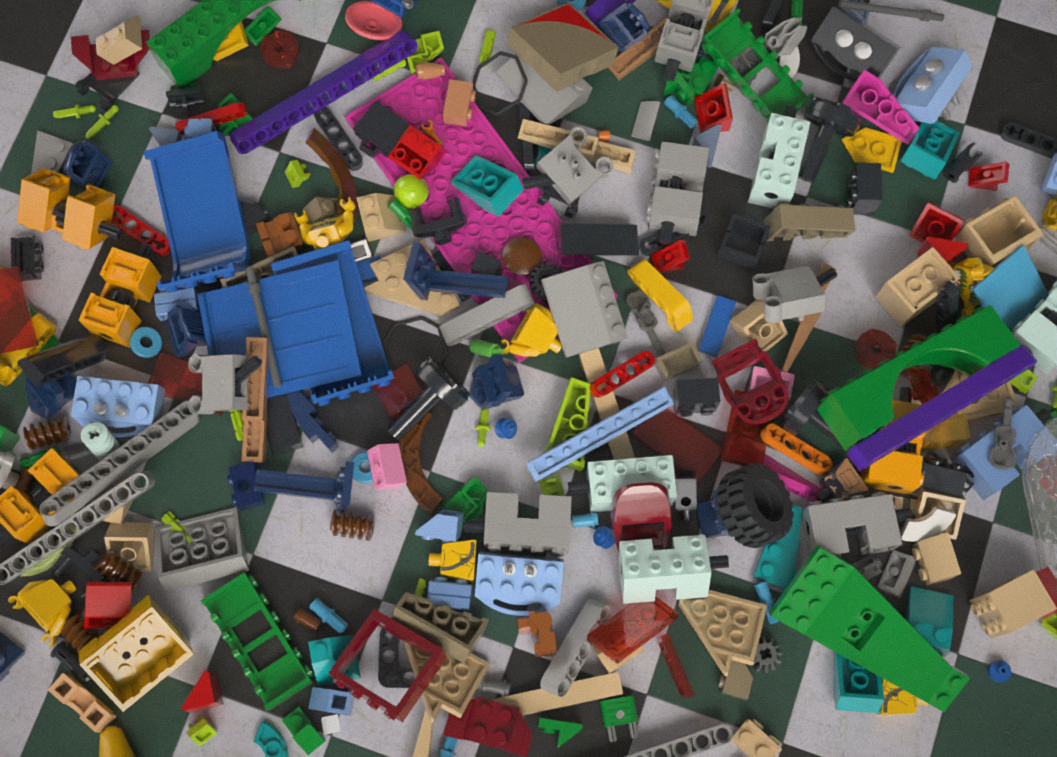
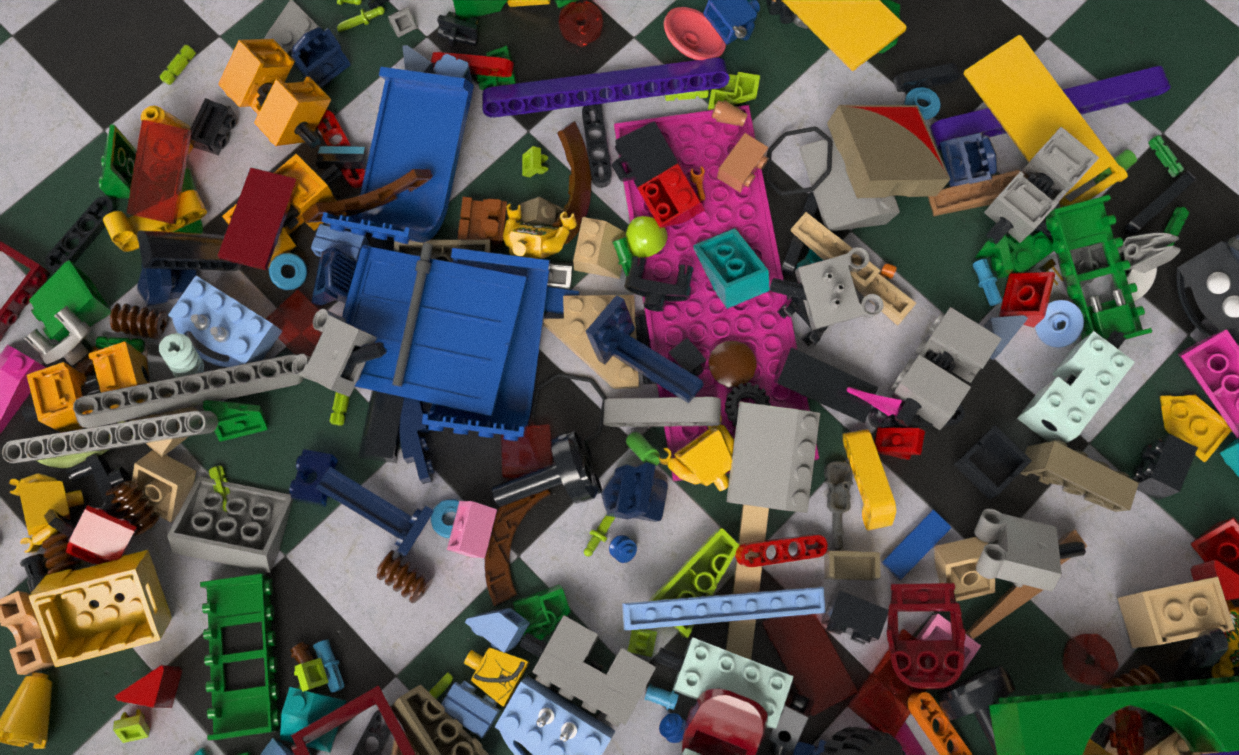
camera: 25 degrees right, 0 degrees up
(68, 607) = (59, 522): none -> black tile
(109, 308) = (258, 218): none -> dark red tile
(137, 110) = (402, 22): none -> light grey slope
(144, 235) = (342, 156): none -> black slope
(165, 470) = (236, 419): none -> green wing
(186, 257) = (370, 200): none -> reddish brown tile
(253, 214) = (465, 186): black arch -> none
(256, 416) = (367, 389): medium nougat slope -> none
(319, 626) = (311, 674): none -> lime tile
(487, 46) = (805, 115): lime axle -> none
(645, 120) = (943, 273): light grey slope -> none
(648, 234) = (885, 404): none -> dark pink piece
(740, 125) = (1049, 328): none -> light blue dish
(783, 97) = (1116, 318): none -> green piece
(831, 119) = (1159, 368): black piece -> none

